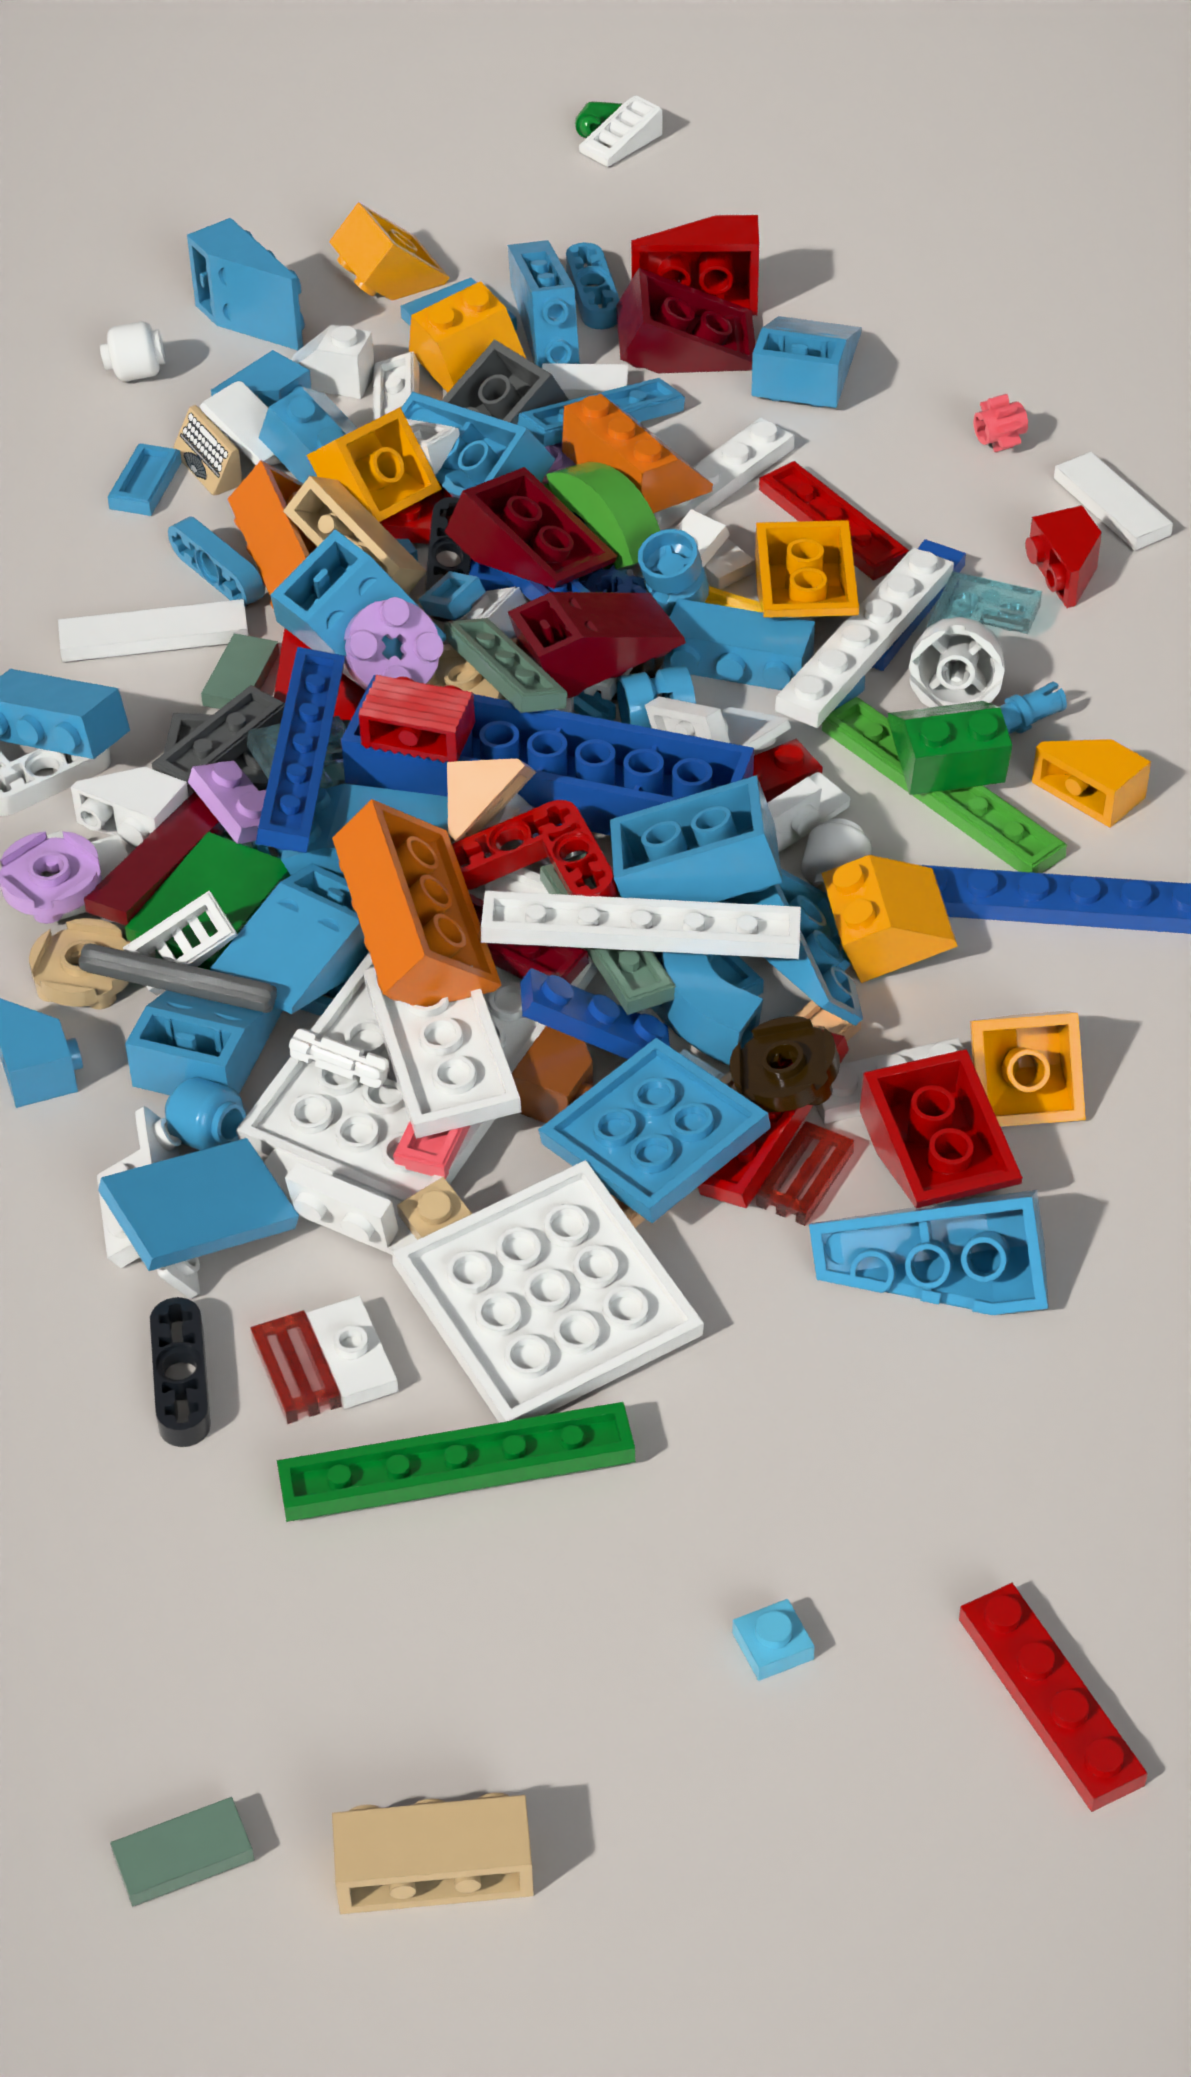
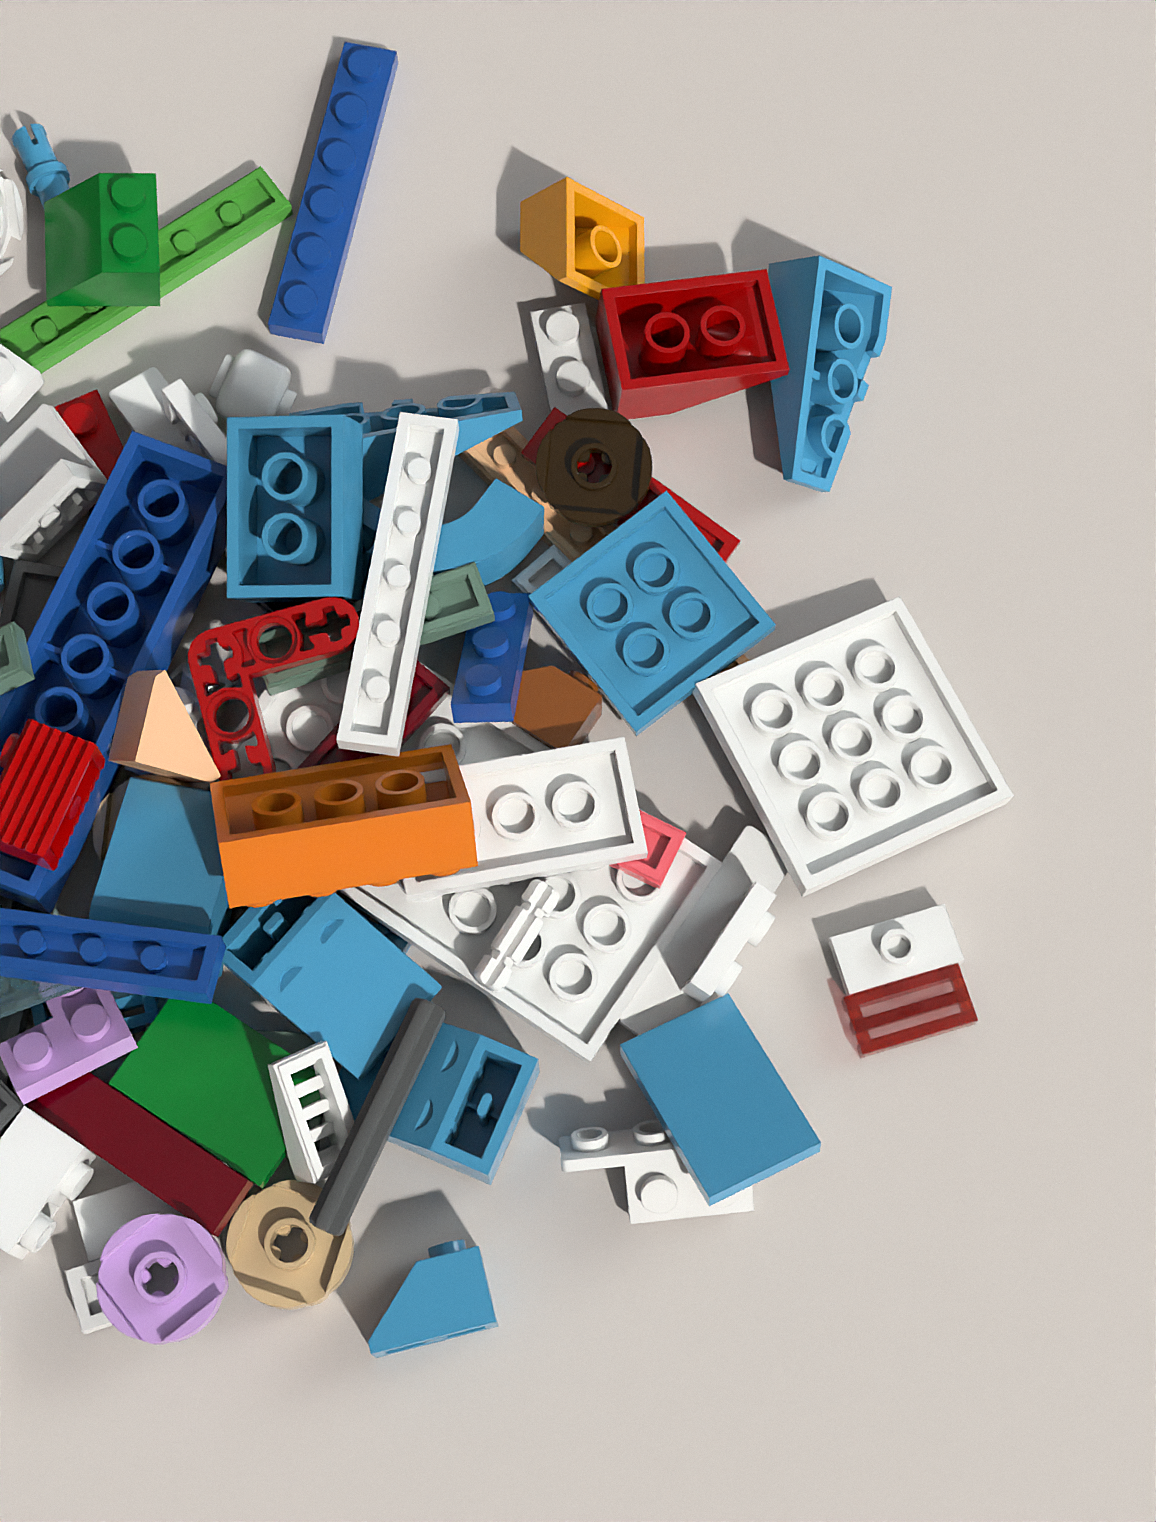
camera: 85 degrees left, 25 degrees up
(192, 1388) = (956, 1111): black beam -> none
(204, 1113) = (565, 1097): dark azure head -> none
(432, 1209) = (743, 847): tan plate -> none
(455, 1461) = (1051, 855): green plate -> none
(789, 1201) = (704, 468): clear red tile -> none
(887, 914) = (359, 346): light orange slope -> none
(1092, 776) = (170, 117): light orange slope -> none

